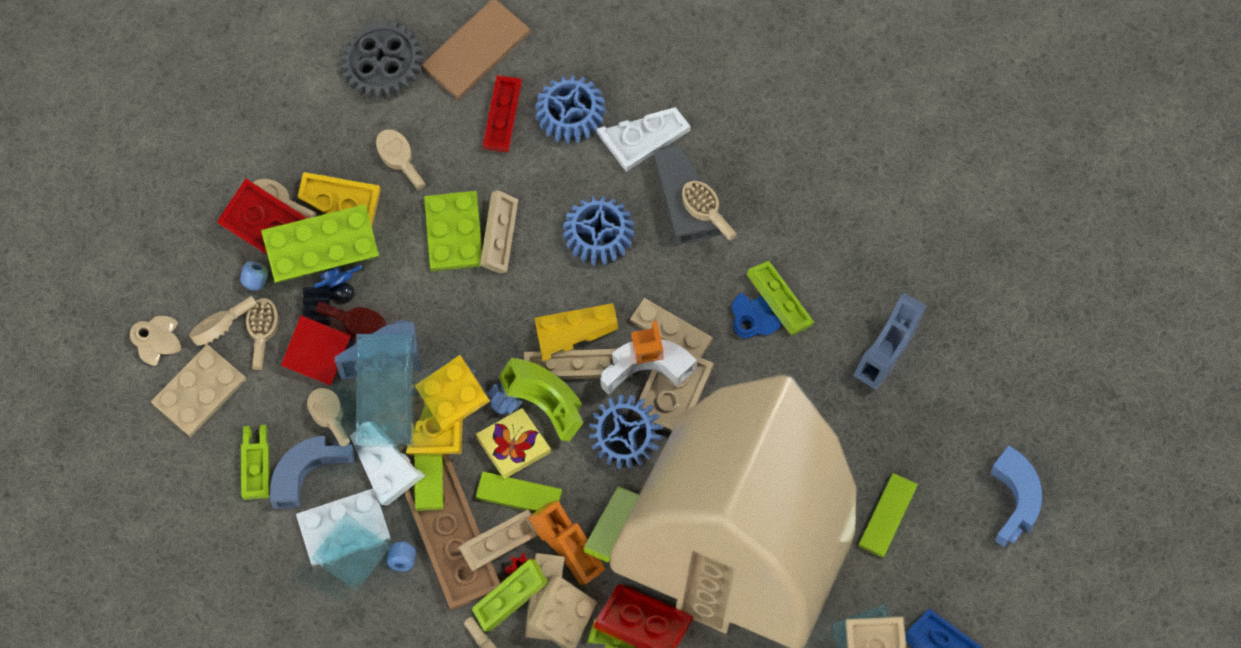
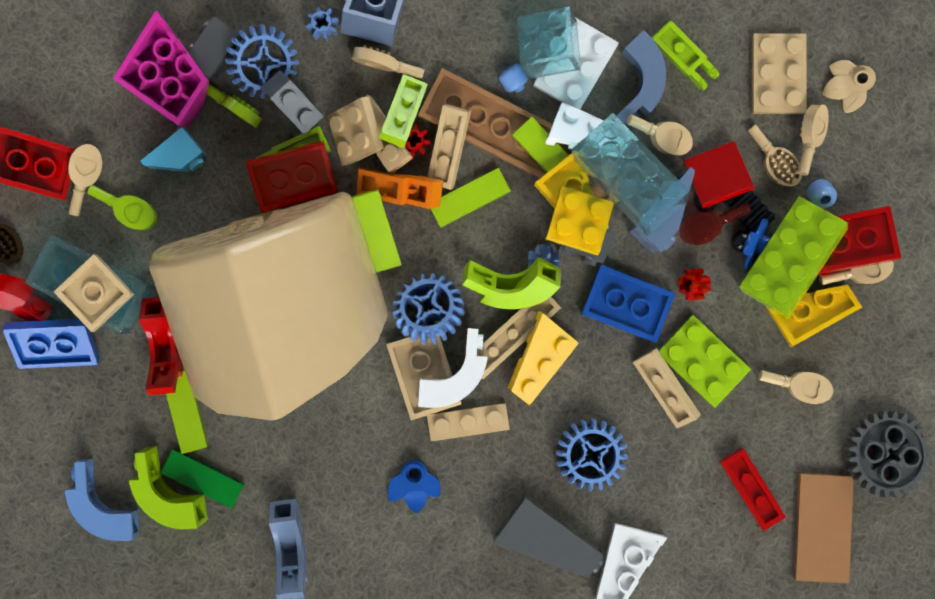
camera: 130 degrees right, 20 degrees up
(408, 287) = (694, 284): none -> red gear
(471, 315) = (628, 303): none -> blue plate
(513, 443) = (506, 231): light yellow tile -> none
(587, 118) = (713, 535): medium blue gear -> none
(648, 344) = (464, 386): orange panel -> none
(704, 205) = (525, 542): tan piece -> none
(780, 298) = (406, 517): lime tile -> none
(861, 572) = (164, 357): none -> red arch
(917, 453) = (202, 478): none -> green tile
(964, 457) = (159, 500): none -> lime arch

